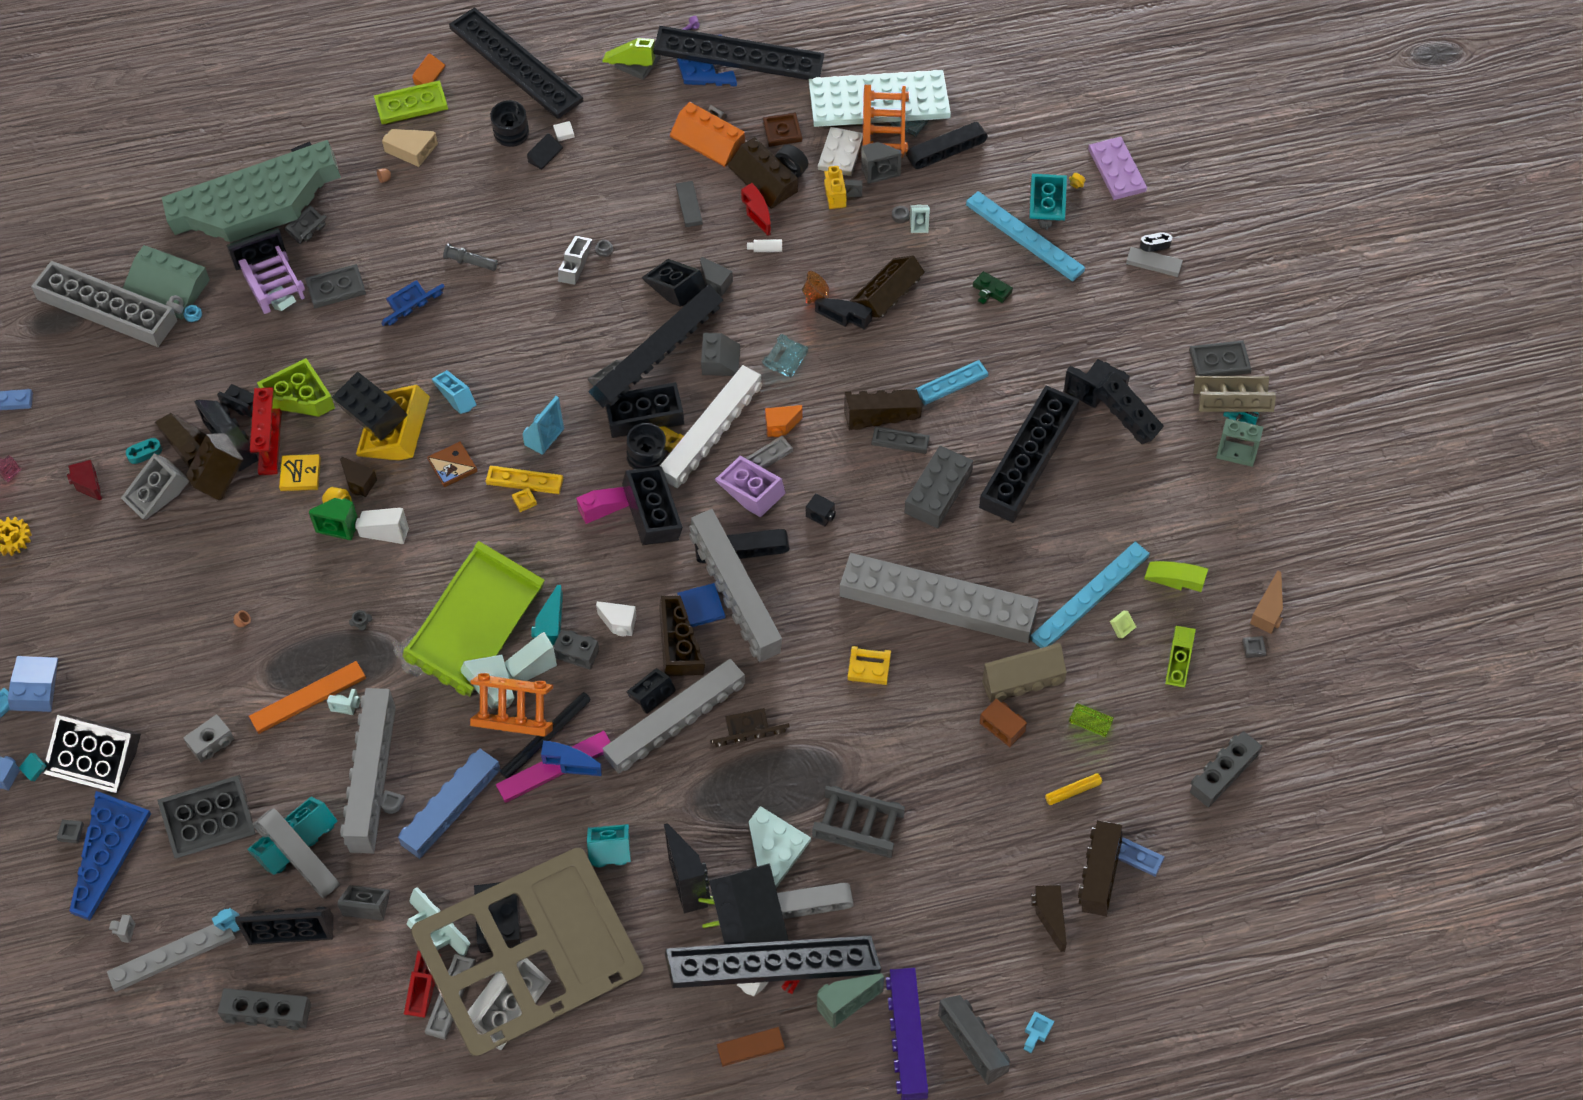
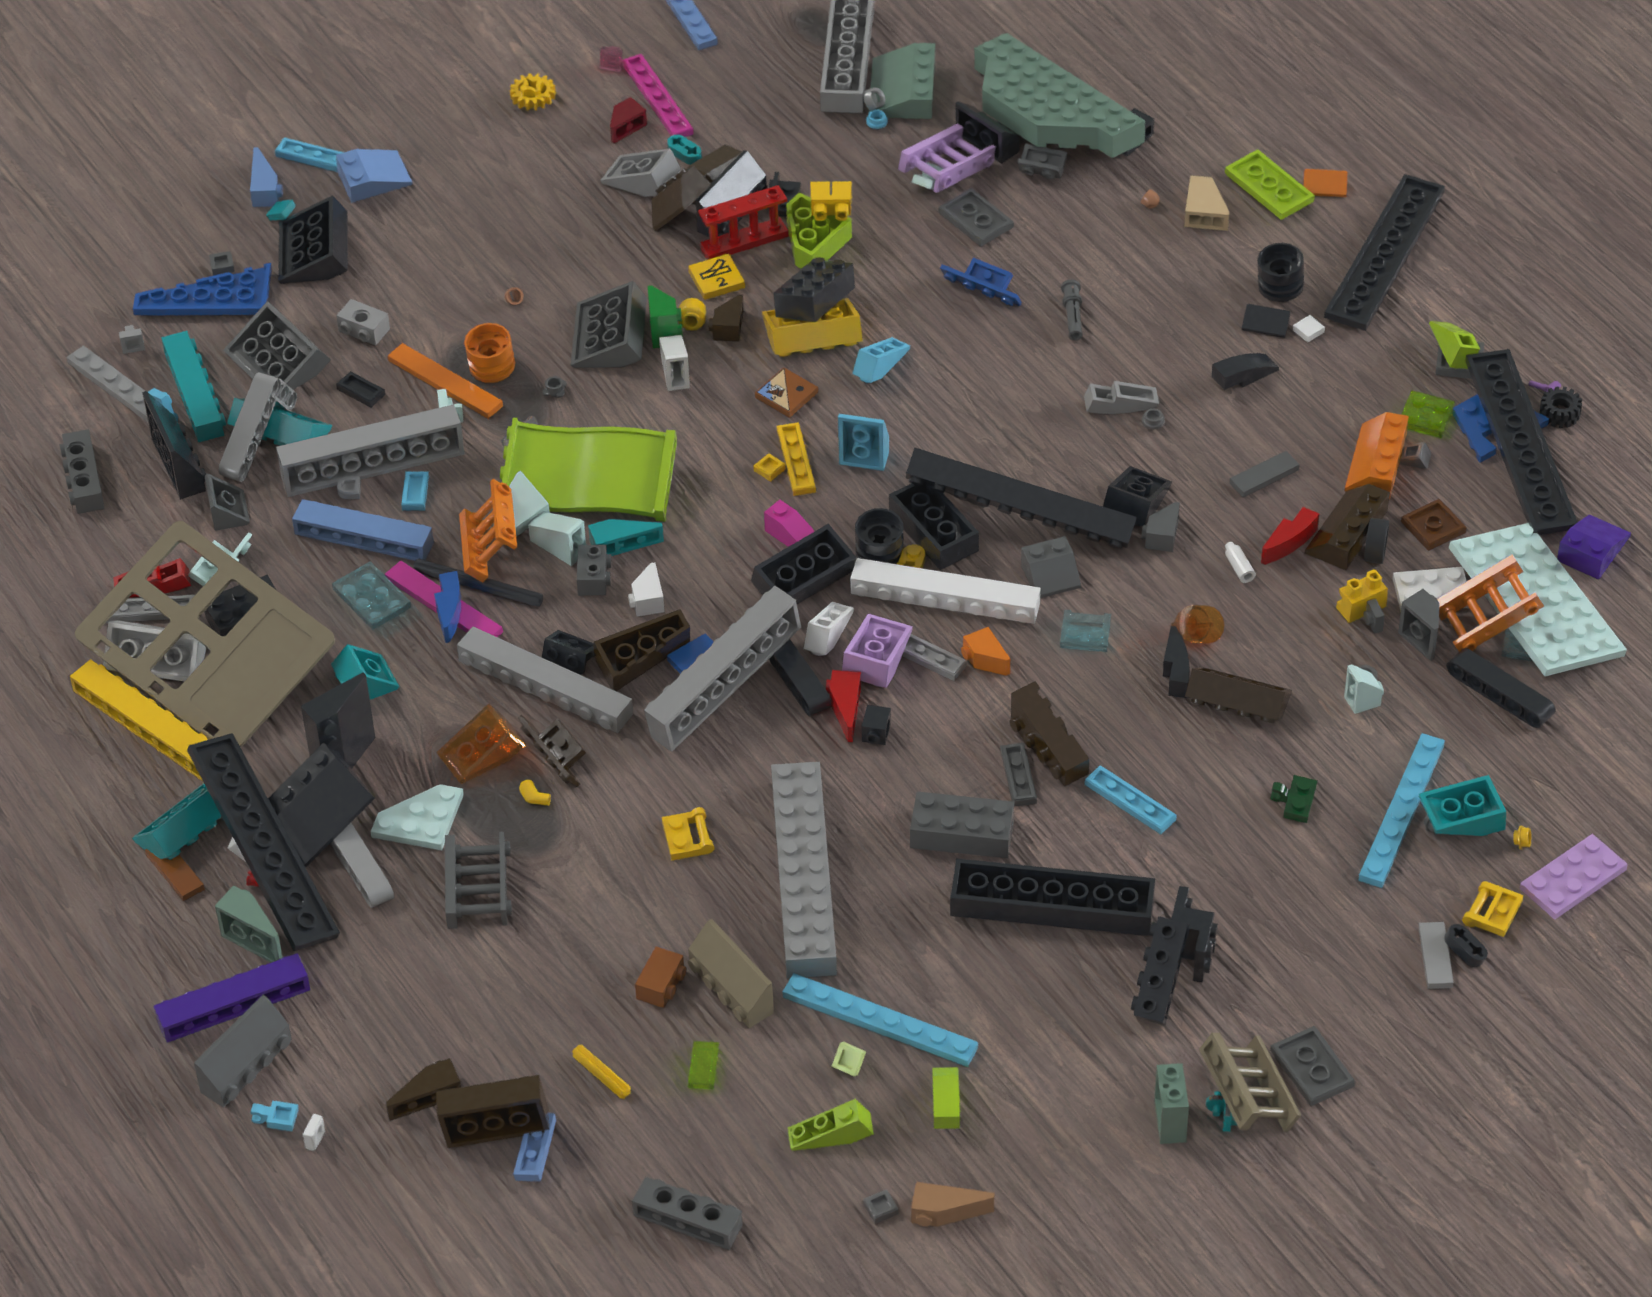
camera: 70 degrees right, 10 degrees down
(70, 451) = (657, 96): none -> dark pink tile
(209, 892) = (193, 386): none -> teal brick
(281, 763) = (360, 389): none -> black tile
(284, 362) = (831, 205): none -> yellow hips
(297, 647) = (489, 352): none -> orange wheel
(319, 562) = (610, 328): none -> dark grey slope
(420, 753) = (415, 491): none -> medium azure tile
(523, 816) = (371, 595): none -> clear light blue plate
(582, 1025) = (137, 713): none -> yellow brick
(587, 180) = (1243, 369): none -> black slope
(678, 95) = (1428, 413): none -> clear neon green plate
(700, 502) = (826, 628): none -> white slope
(706, 1024) = (180, 825): none -> teal slope
(714, 17) = (1563, 398): none -> black tyre
(724, 781) = (481, 745): none -> clear orange slope
(785, 760) = (531, 794): none -> yellow arm
(793, 522) = (845, 695): none -> red slope
(845, 53) = (1591, 545): none -> dark purple slope
(1065, 1006) = (314, 1132): none -> white tile
(1133, 213) = (1499, 914): none -> yellow plate

